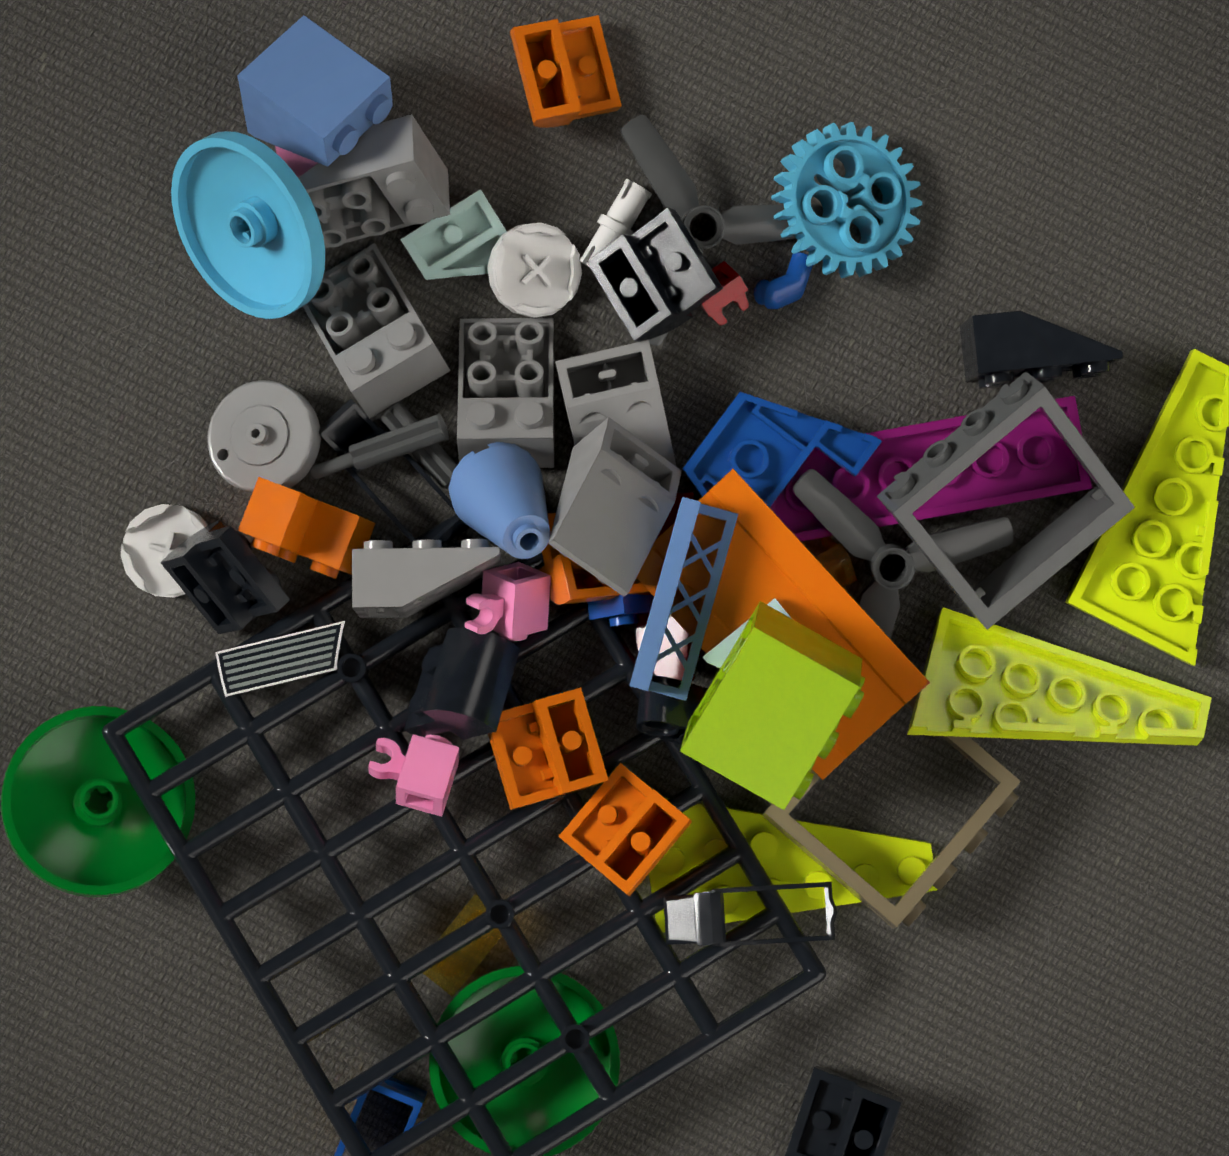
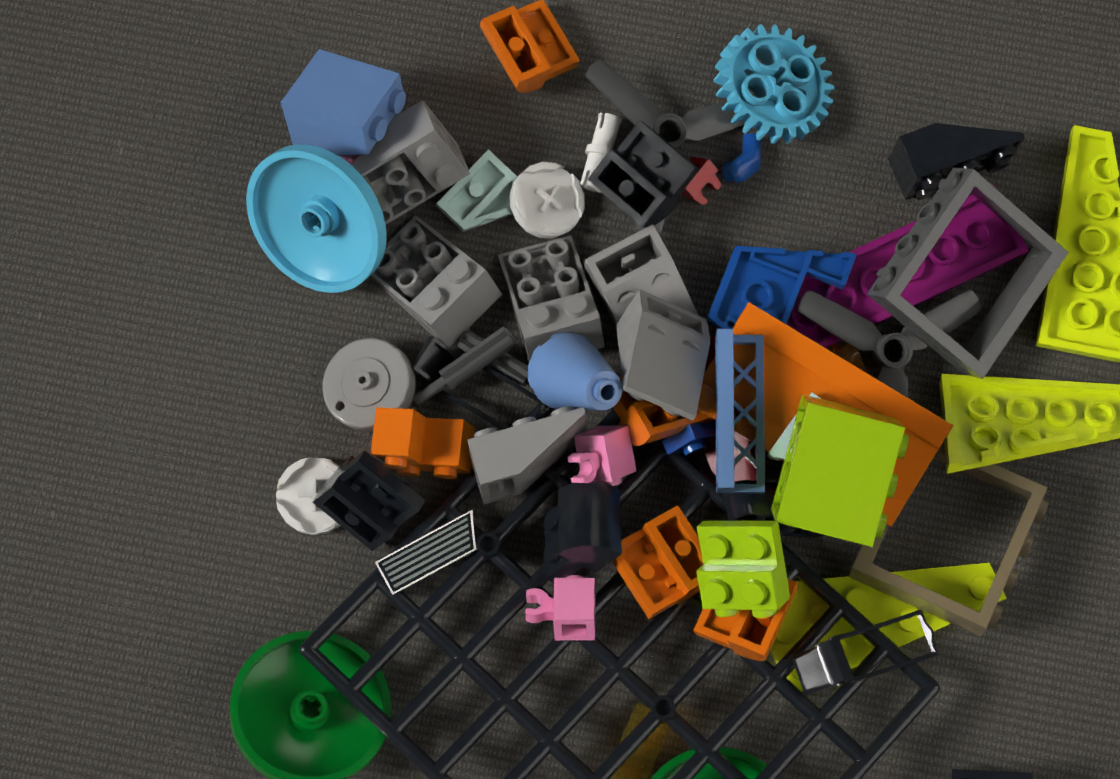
camera: 20 degrees left, 10 degrees down
(628, 789) = (742, 567): none -> lime plate

